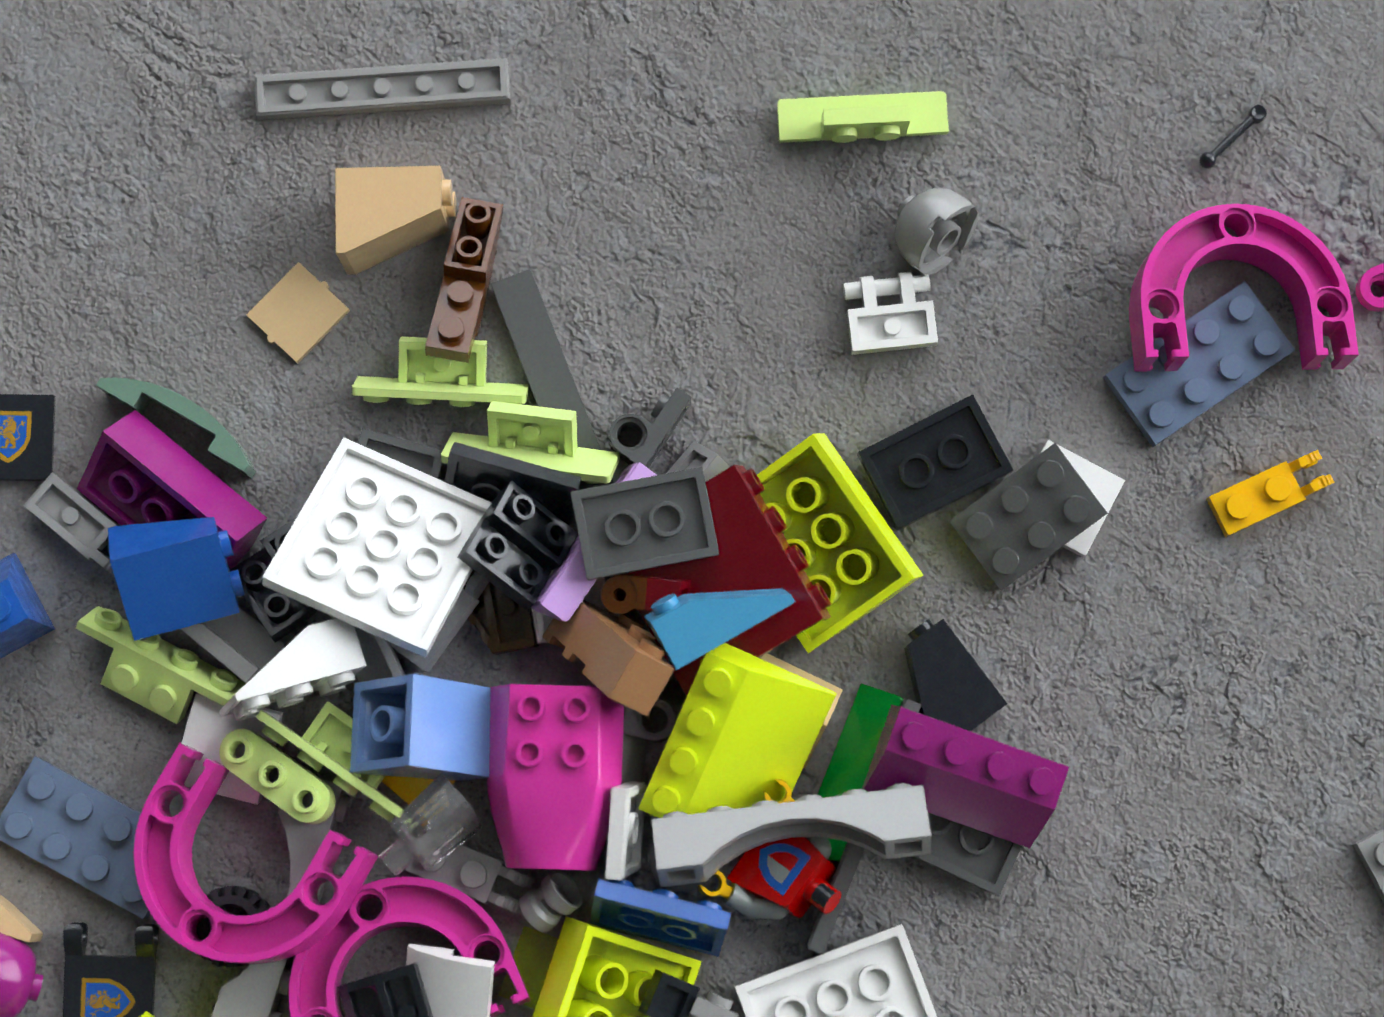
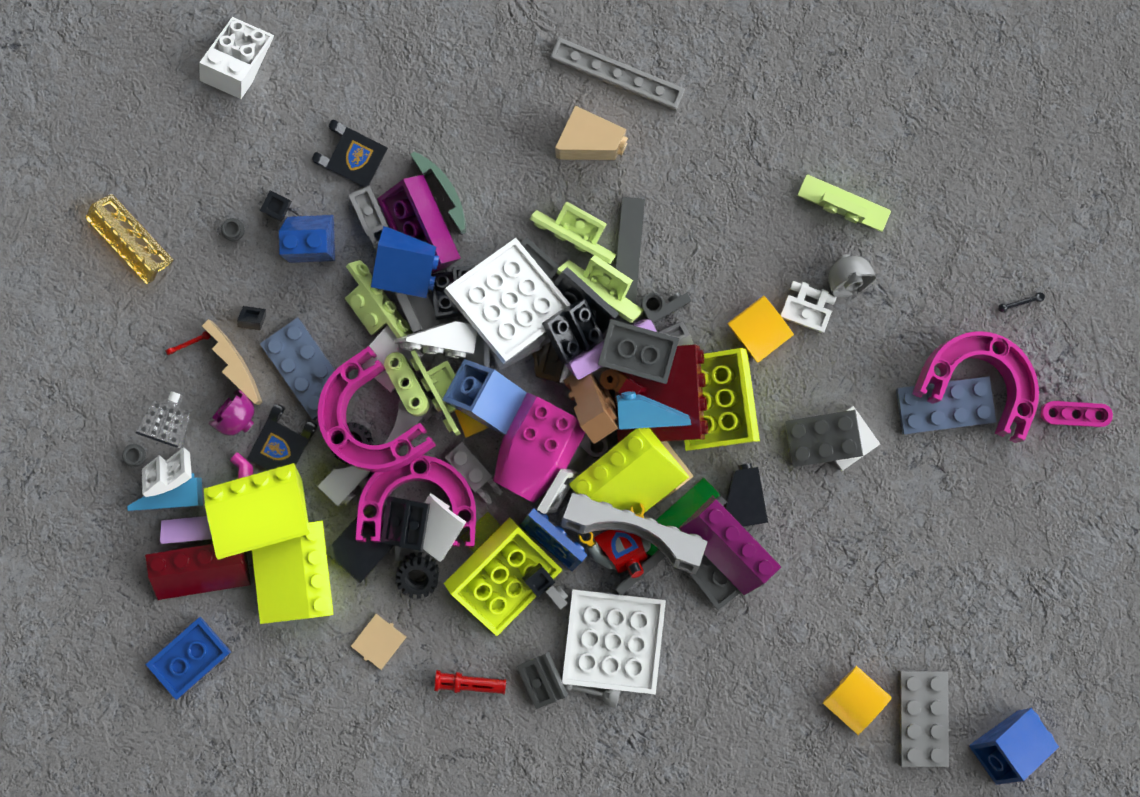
camera: 30 degrees right, 5 degrees up
(298, 312) = (523, 164): tan piece -> none
(441, 815) = (475, 442): clear torso -> none
(465, 280) = (611, 189): reddish brown slope -> none
(551, 900) = (506, 506): light grey wheel -> none
(830, 388) = (760, 329): none -> yellow slope
(935, 462) = (793, 389): black plate -> none
(1264, 494) = (944, 484): yellow hinge -> none
(1310, 930) = (857, 700): none -> yellow slope

